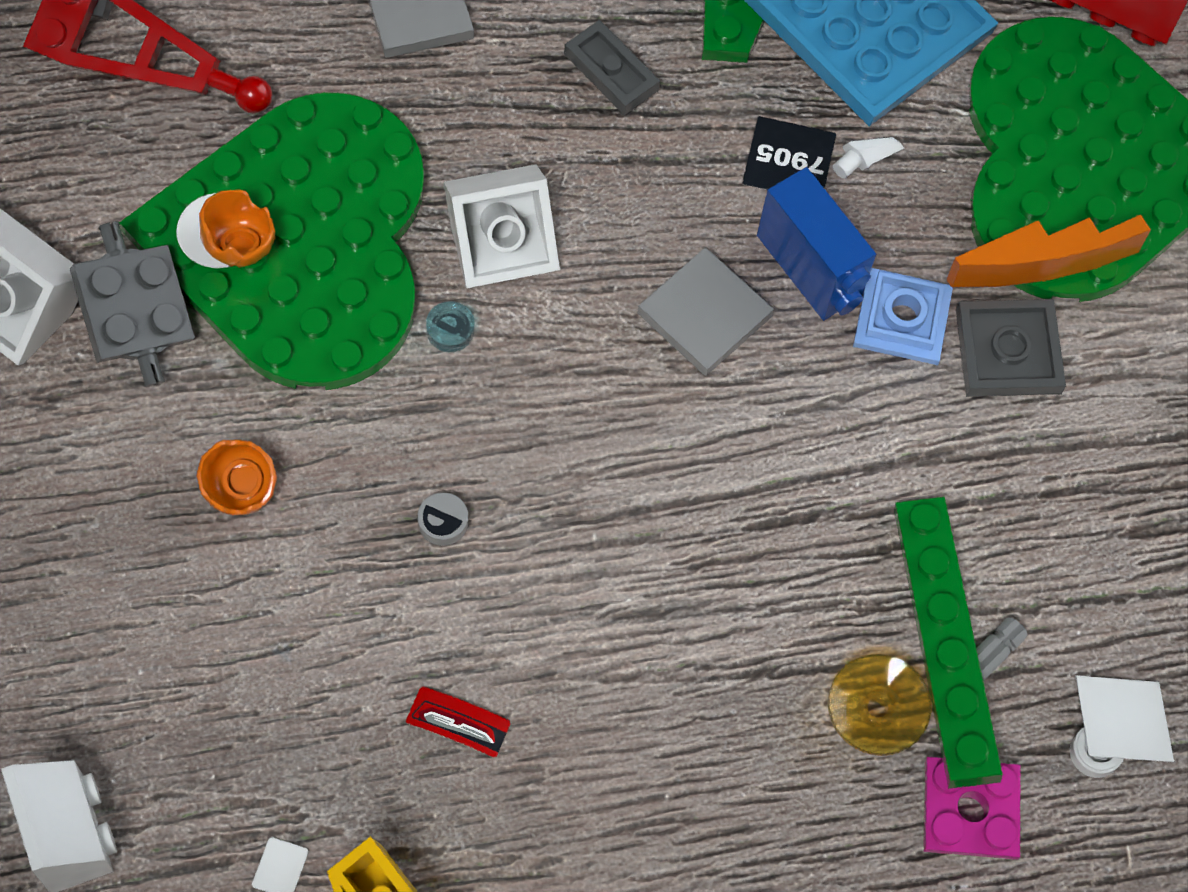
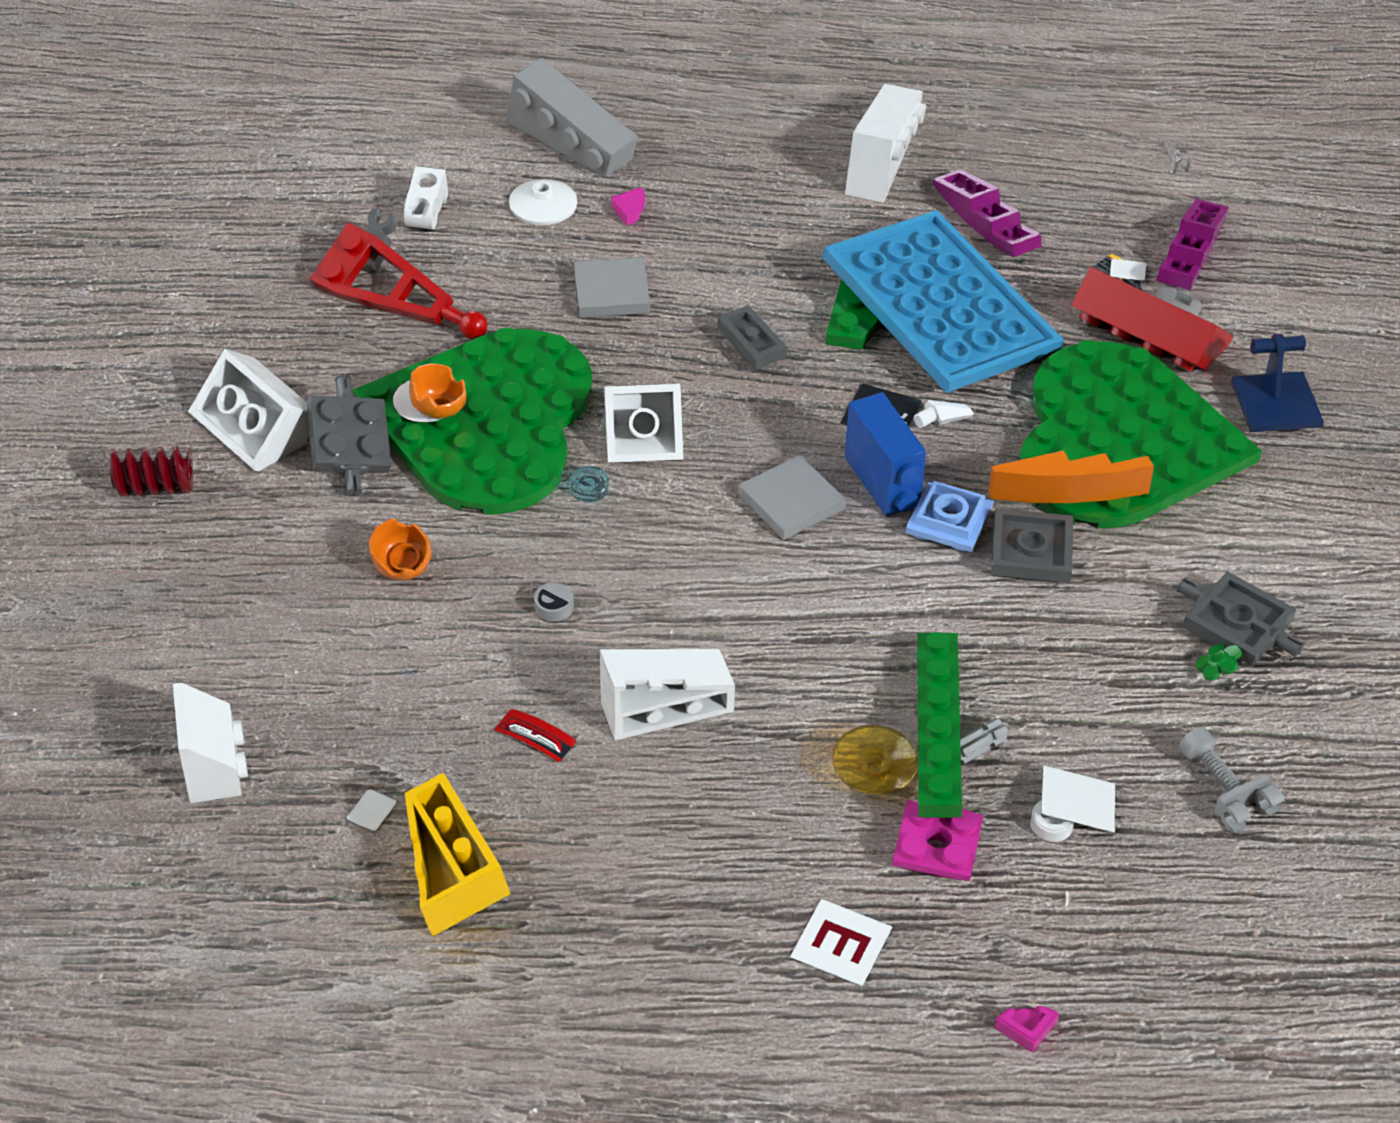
camera: 15 degrees right, 20 degrees down
(609, 642) = (662, 688): none -> white wedge

